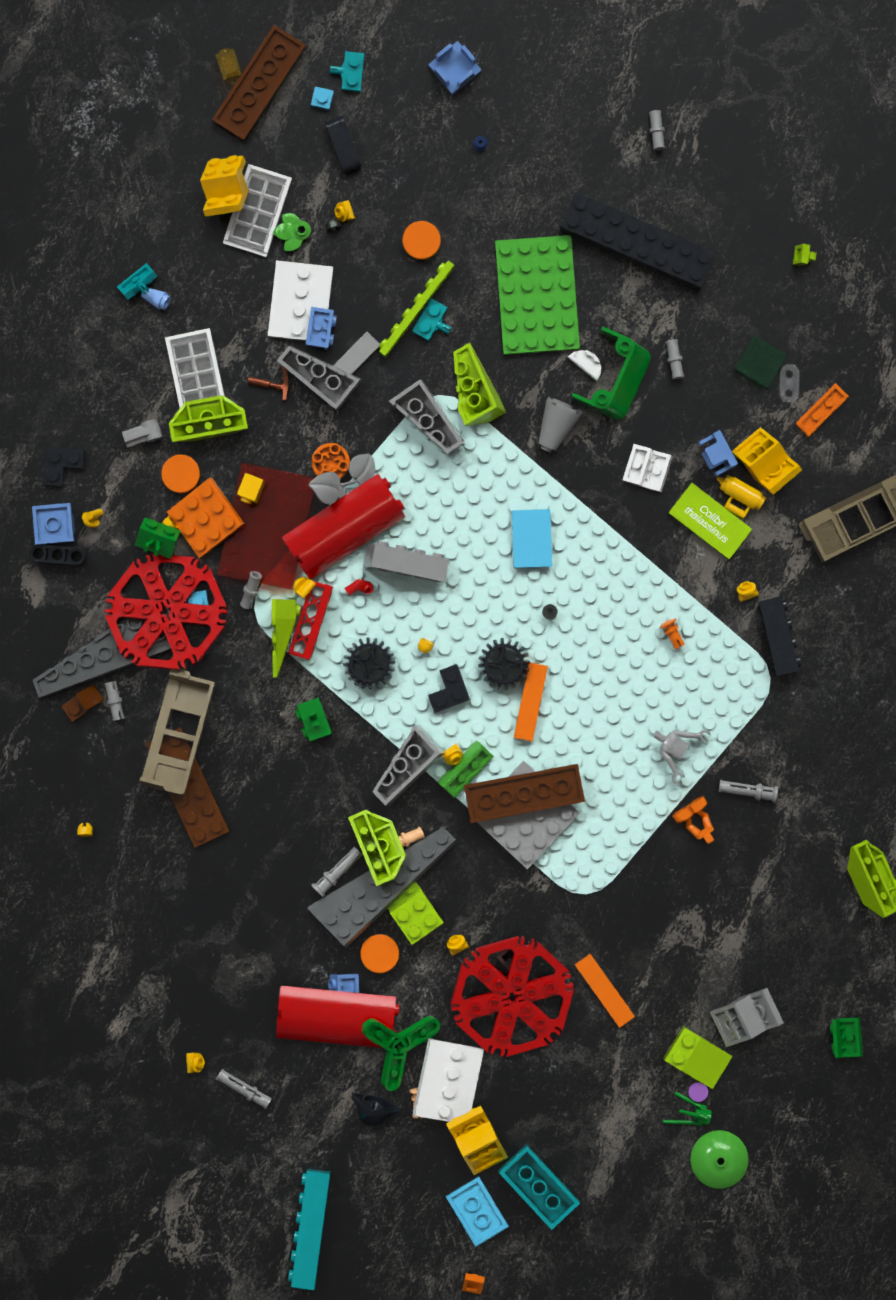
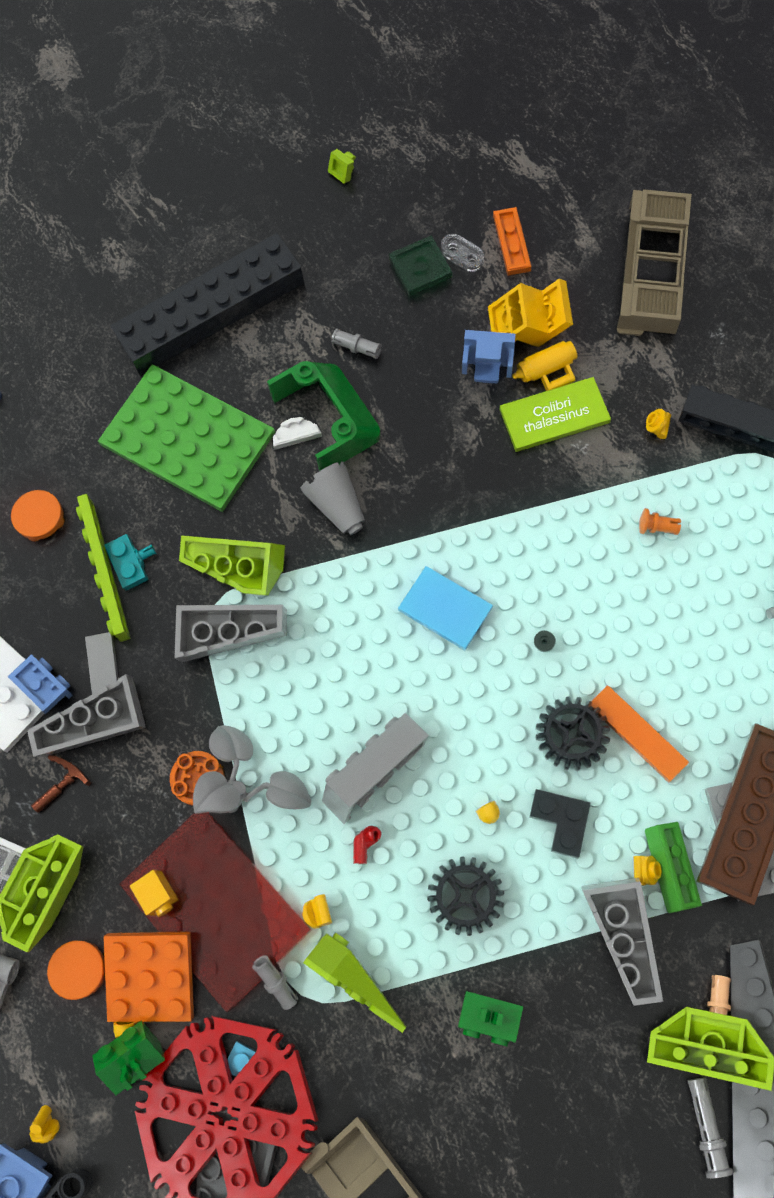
camera: 45 degrees left, 15 degrees down
(316, 626) = (374, 928): red fence -> none
(344, 526) = (279, 812): red cylinder -> none
(647, 468) = (452, 441): white slope -> none
(657, 130) = (115, 223): light grey pin -> none

